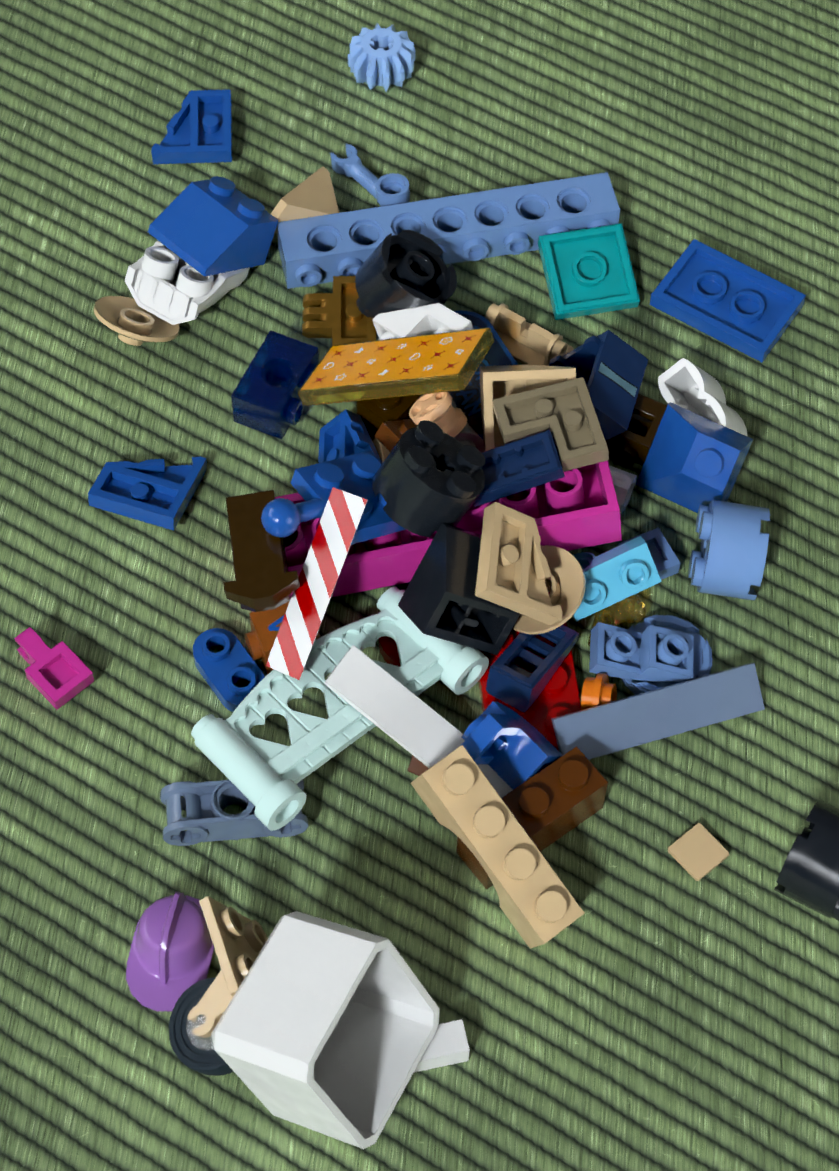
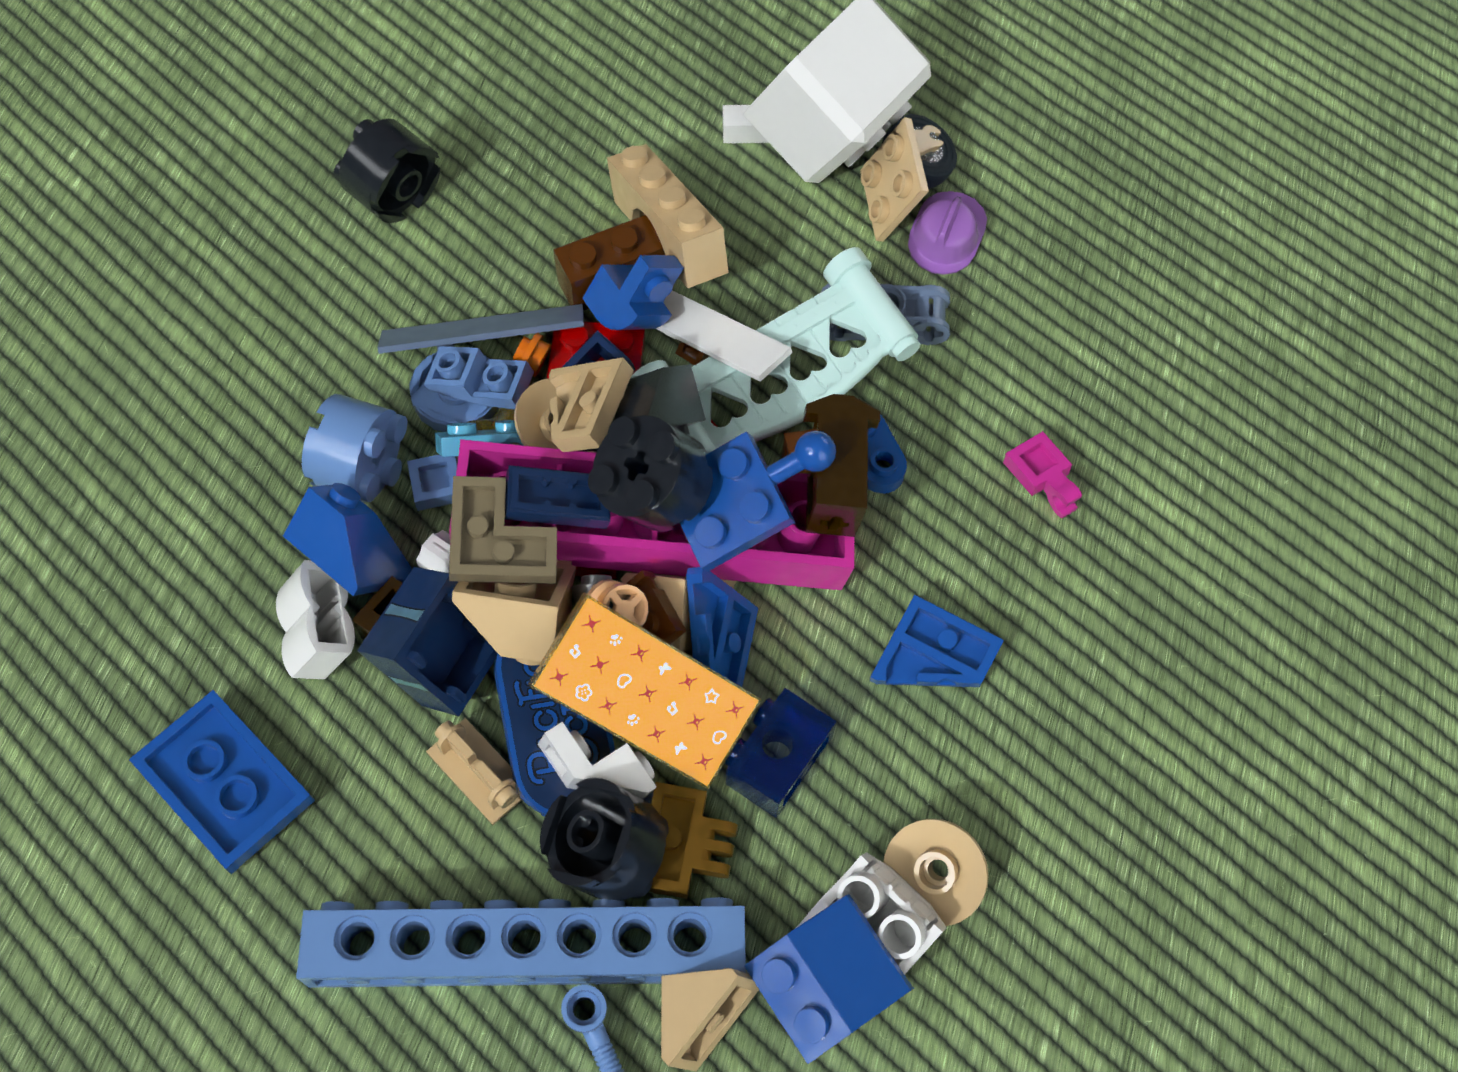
camera: 170 degrees left, 5 degrees up
(316, 583) = (778, 423): sticker -> none
(588, 271) = (371, 851): teal plate -> none
(698, 852) = (489, 227): tan piece -> none

